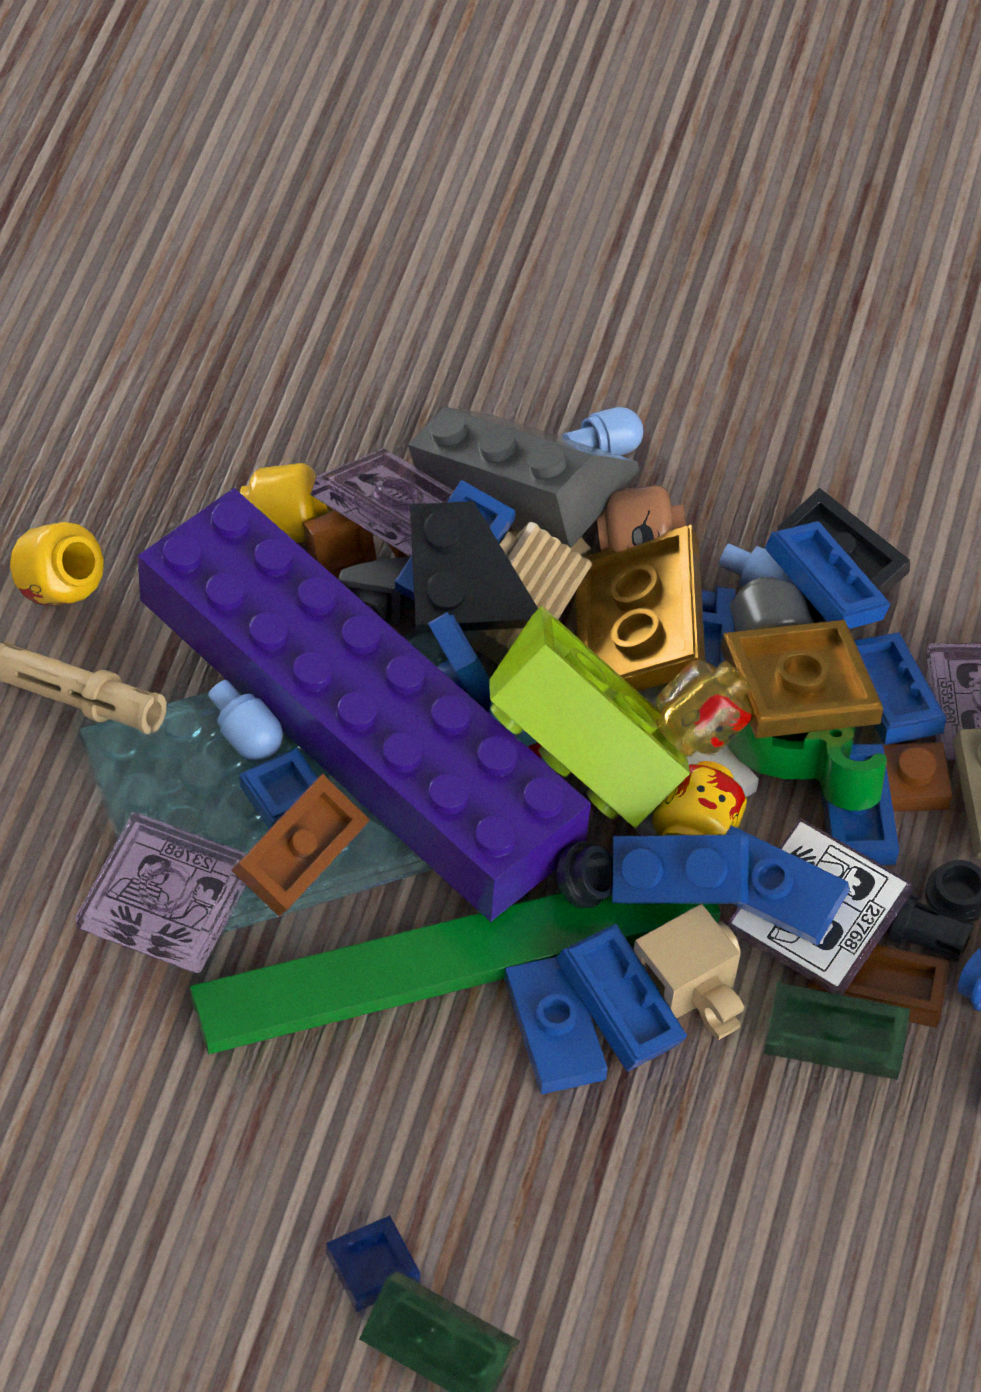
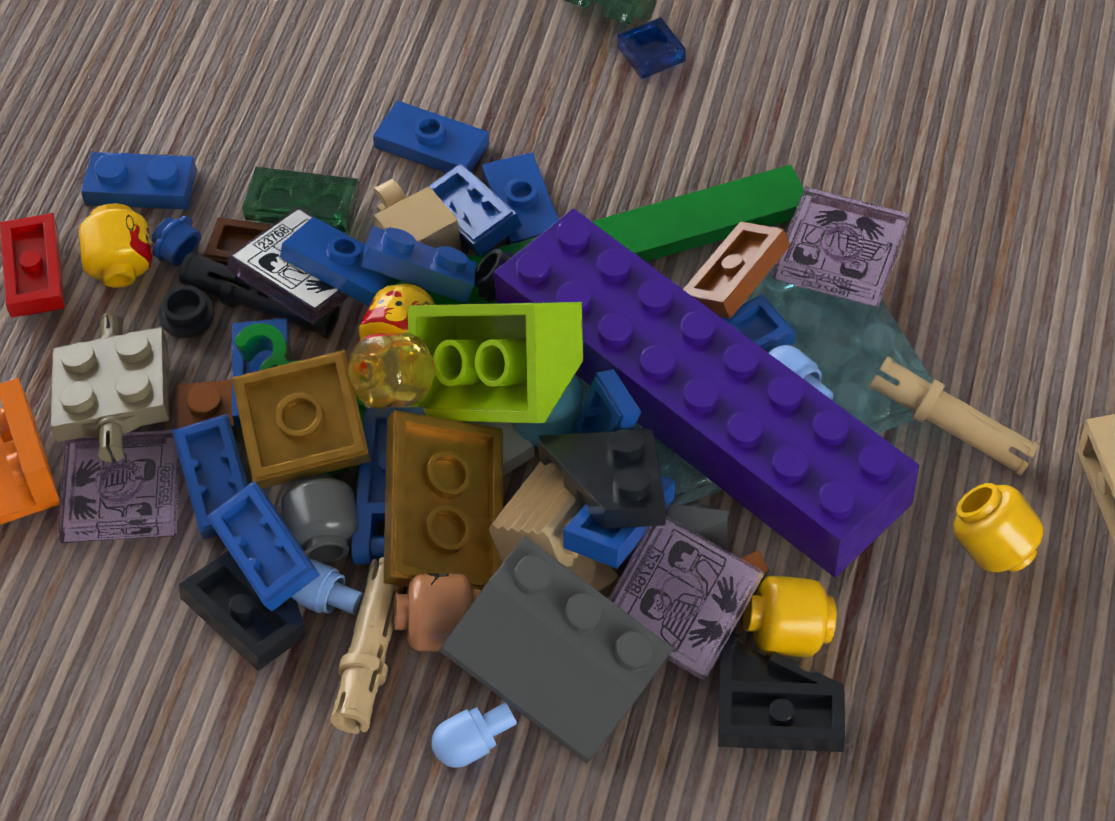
camera: 175 degrees left, 0 degrees up
(304, 430) = (776, 703): none -> black wing
(675, 1126) = (430, 138): none -> blue plate
(712, 497) = (364, 665): none -> tan pin

